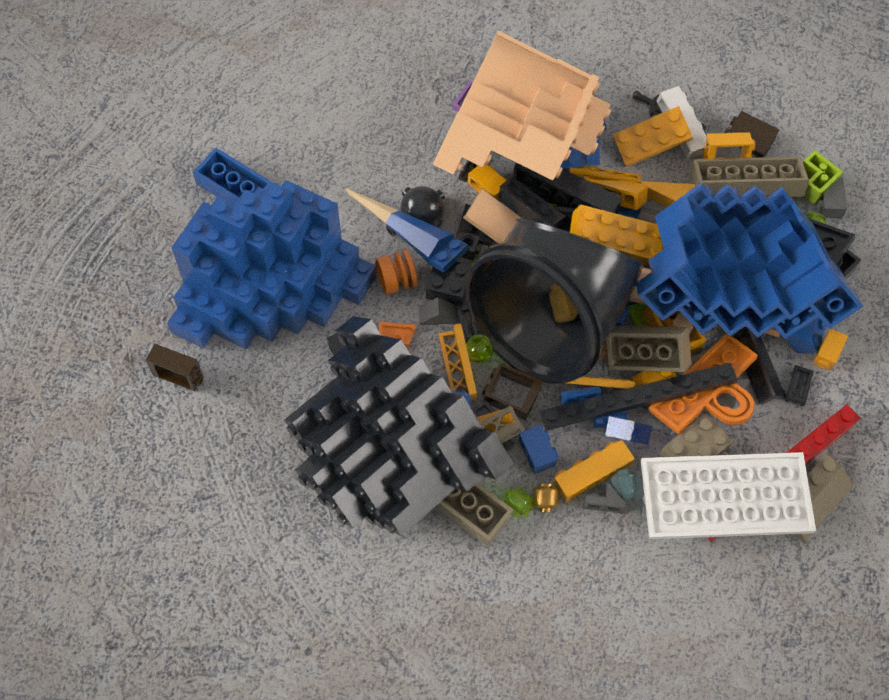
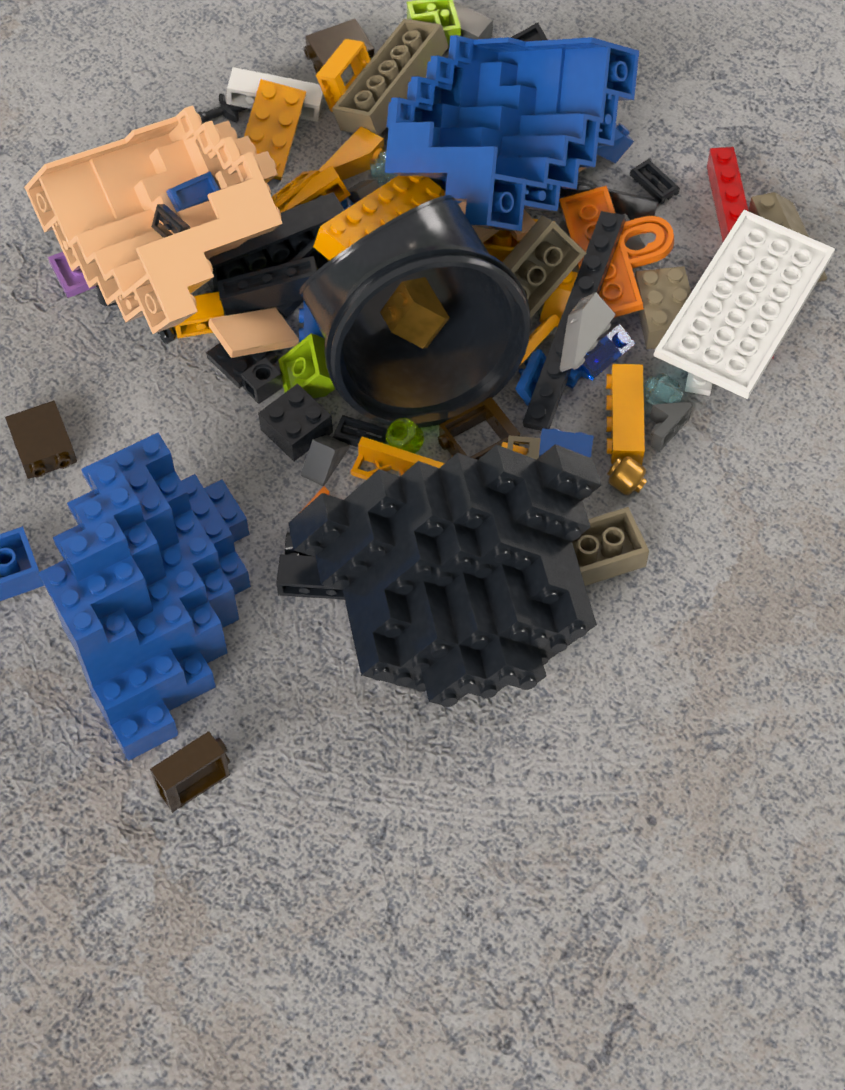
camera: 55 degrees left, 5 degrees down
(342, 156) = (41, 439): none -> dark brown panel
(400, 270) = (246, 464): orange wheel -> none
(422, 204) = (177, 401): black piece -> none
(430, 242) = (238, 405): blue plate -> none
(514, 122) = (170, 221): none -> black tile
(519, 501) = (615, 499): clear neon green head -> none
(551, 121) = (192, 191): none -> blue tile
(631, 404) = (584, 325): none -> light grey slope
(830, 349) = (641, 127): light orange slope -> none

